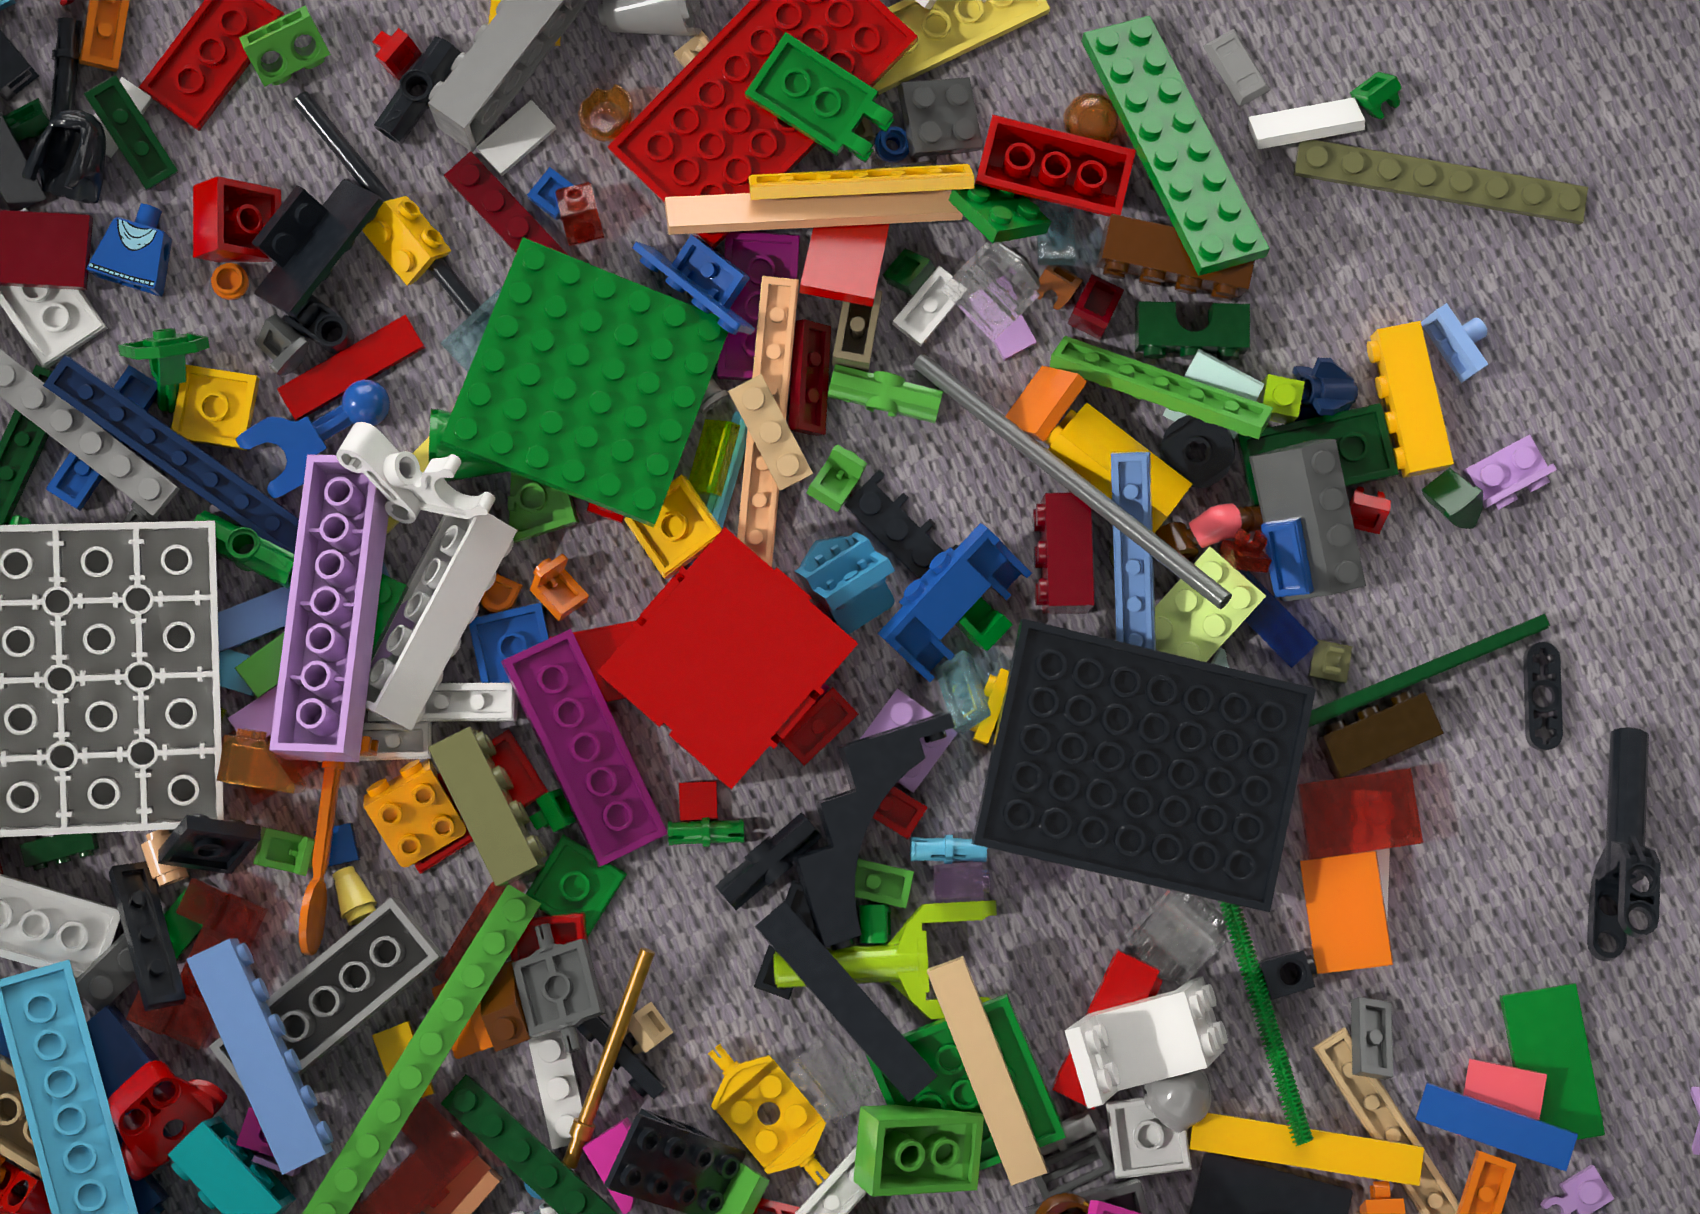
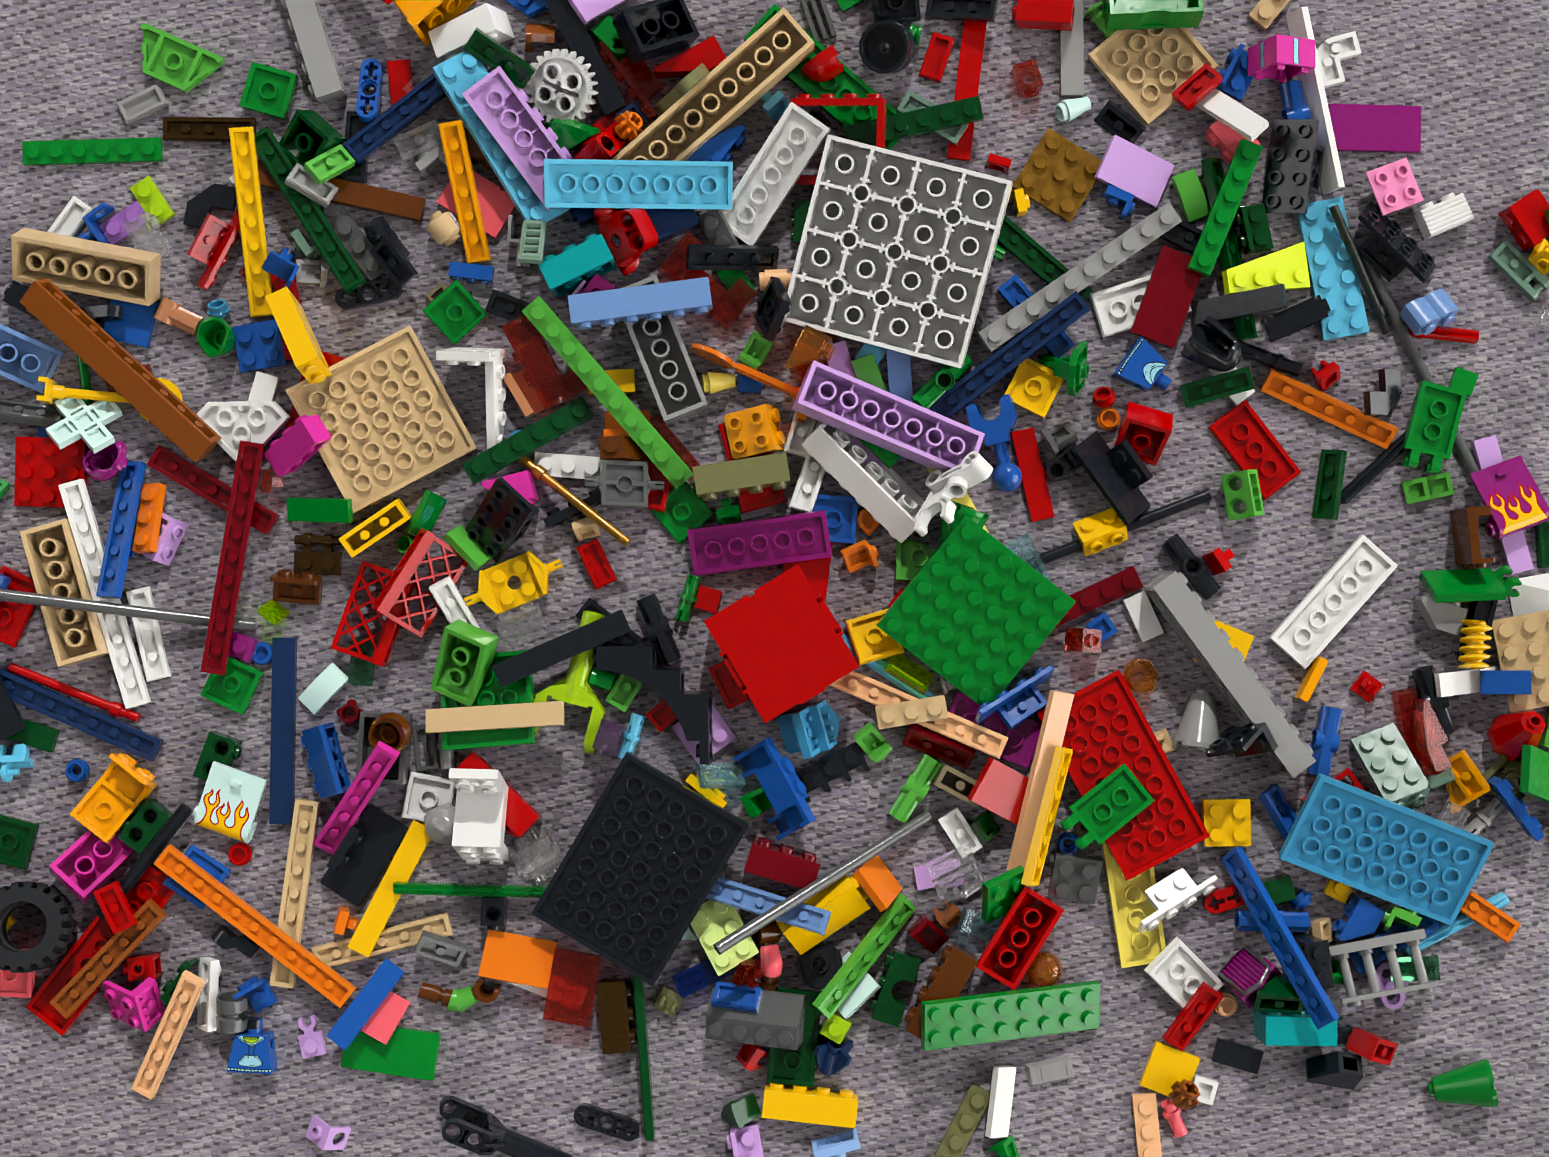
camera: 115 degrees right, 5 degrees up
(199, 297) = (1103, 397): none -> red plate
(698, 992) = (596, 564): none -> red plate
(1438, 983) = (459, 999): none -> reddish brown piece

